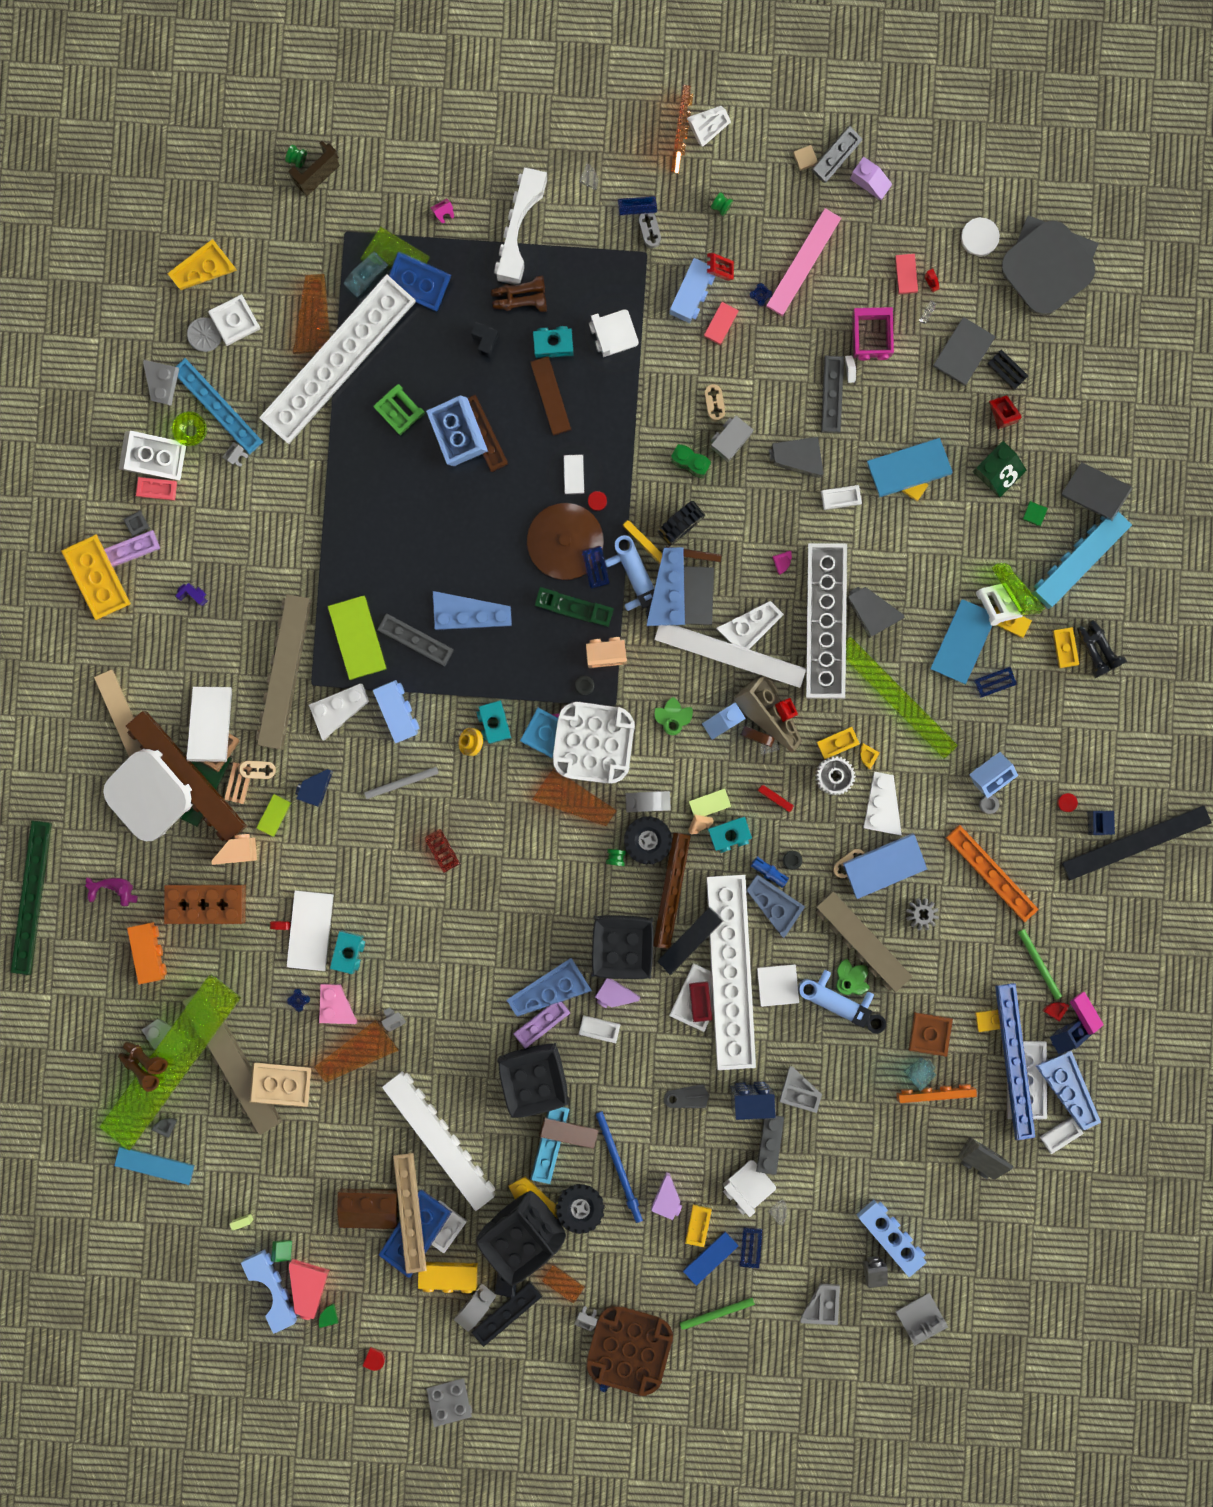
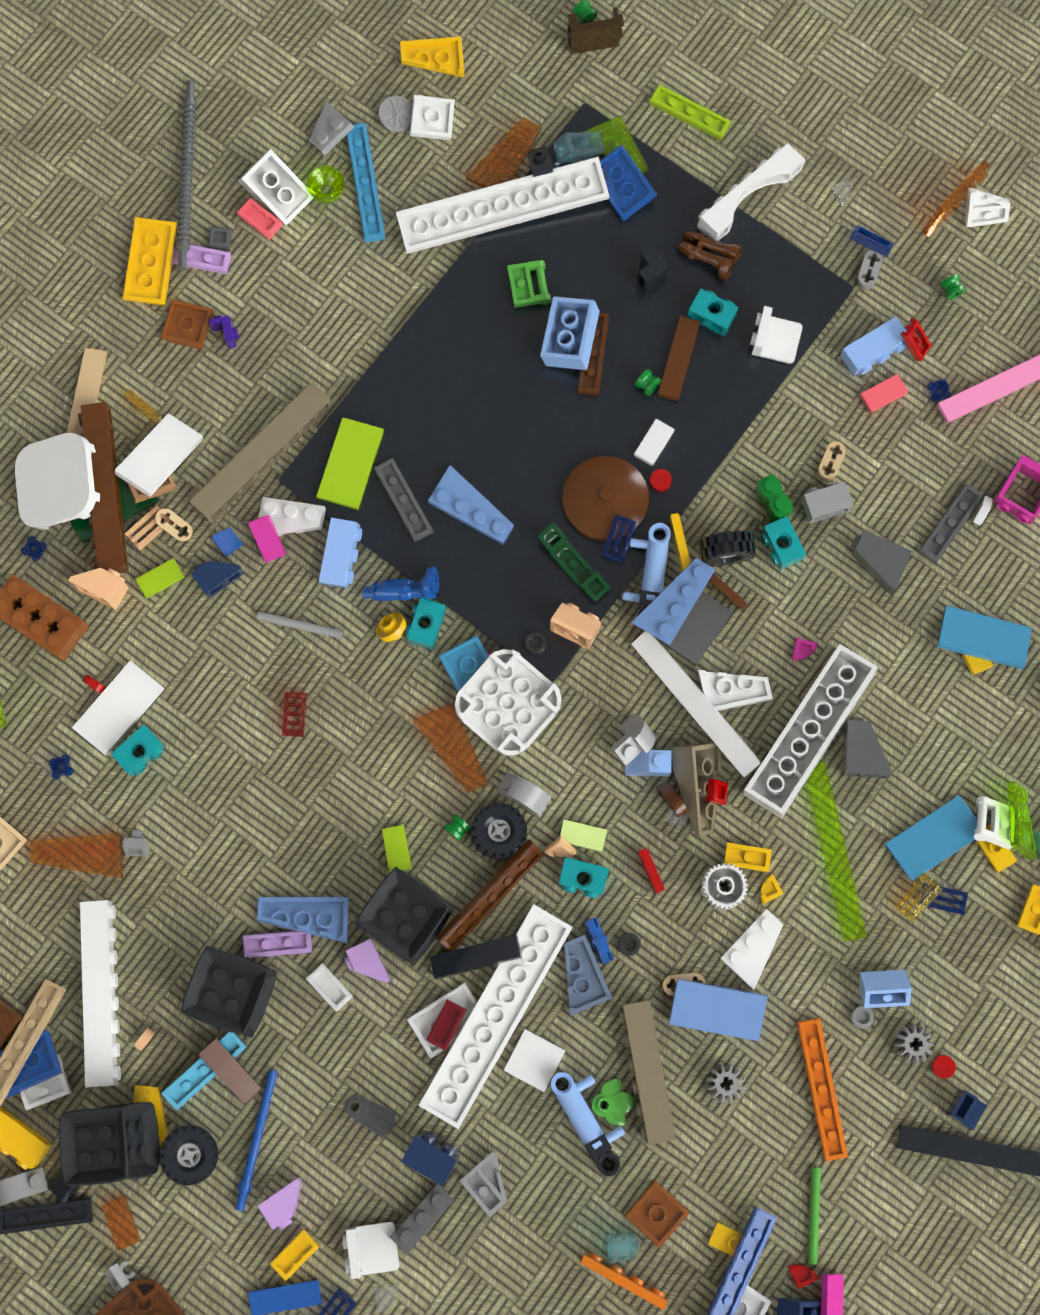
camera: 30 degrees right, 10 degrees down
(113, 549) = (189, 110): none -> dark grey hose
(158, 608) = (187, 324): none -> dark orange tile
(169, 854) = (38, 552): none -> clear blue plate
(171, 695) = (143, 407): none -> clear yellow tile
(233, 454) = (350, 231): light grey tile -> none
(304, 755) = (227, 541): none -> blue slope
(334, 734) = (267, 538): none -> dark pink tile
(334, 1005) = (91, 795): bright pink wing -> none
(343, 305) = (540, 161): none -> black plate
(430, 187) = (689, 112): none -> lime tile
(442, 208) = (687, 135): dark pink tile -> none
(461, 707) = (404, 588): none -> blue piece
(493, 1150) = (144, 1039): none -> light nougat tile
(540, 431) = (648, 382): none -> green wheel
(582, 900) = (396, 848): none -> lime tile
(673, 713) = (603, 726): bright green plate -> none
(705, 709) = (636, 738): none -> light grey brick
(713, 480) = (783, 530): none -> teal brick
(841, 497) = (899, 624): white tile -> none
(978, 691) = (925, 903): none -> clear yellow tile
(1030, 799) = (908, 1037): none -> light grey gear

